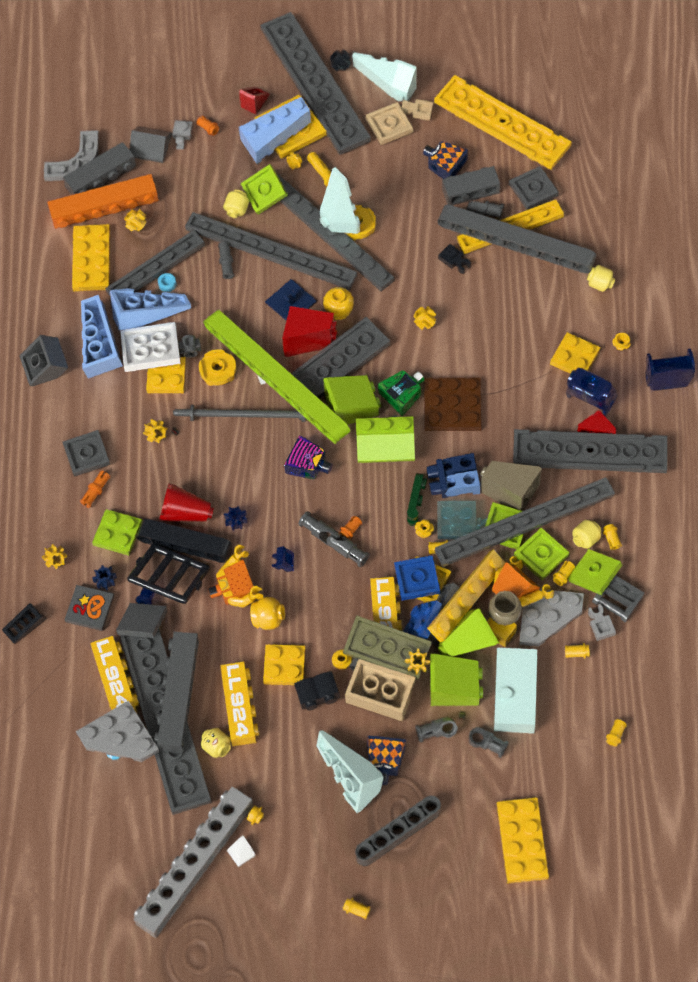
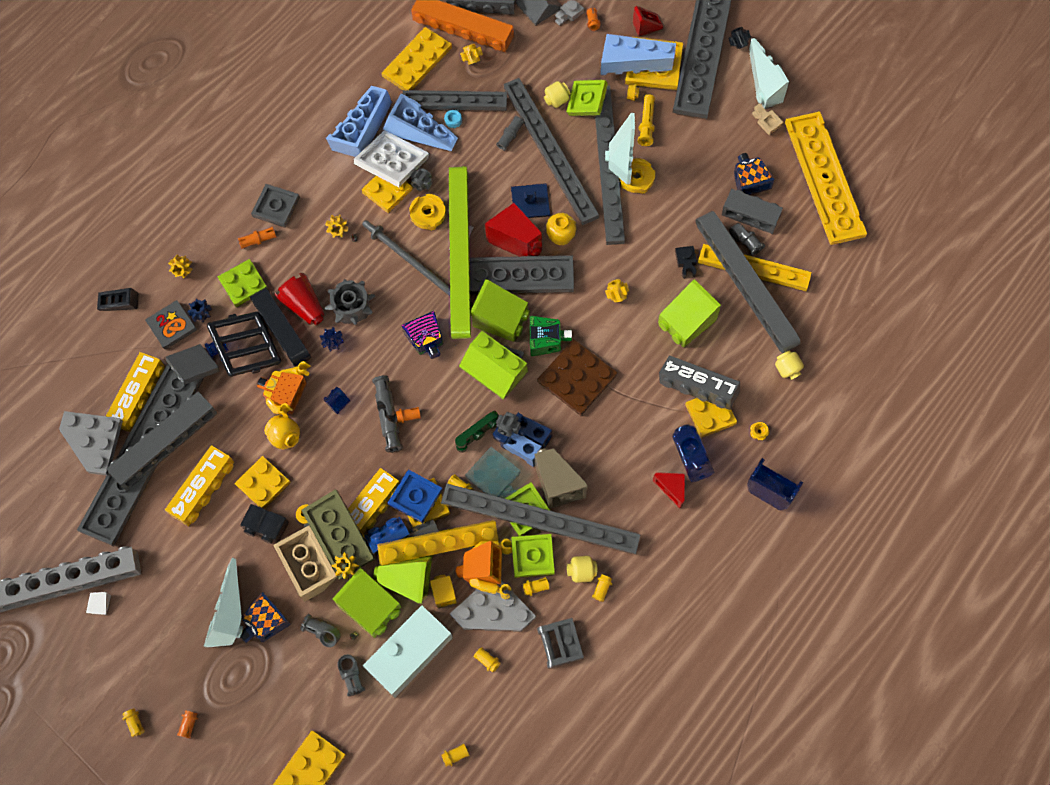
camera: 40 degrees right, 5 degrees up
(43, 360) = (311, 112): dark grey slope -> none
(215, 742) = (155, 502): light yellow head -> none
(224, 478) = (350, 302): none -> dark grey brick
(255, 815) = (132, 583): yellow plate -> none
(389, 123) = (733, 115): tan plate -> none
(399, 875) = (187, 724): none -> orange pin
(400, 822) = (209, 683): dark grey beam -> none
(421, 532) = (462, 455): yellow plate -> none
(440, 471) = (508, 424): none -> dark grey gear
(496, 294) = (689, 314): none -> lime slope
(505, 608) = (452, 578): dark tan piece -> none
(533, 188) = (802, 249): dark grey plate -> none
(549, 338) = (699, 382): none -> dark grey brick
(595, 571) = (560, 606): lime plate -> none
(601, 626) = (525, 655): light grey plate -> none
(610, 452) = (663, 517): dark grey piece -> none

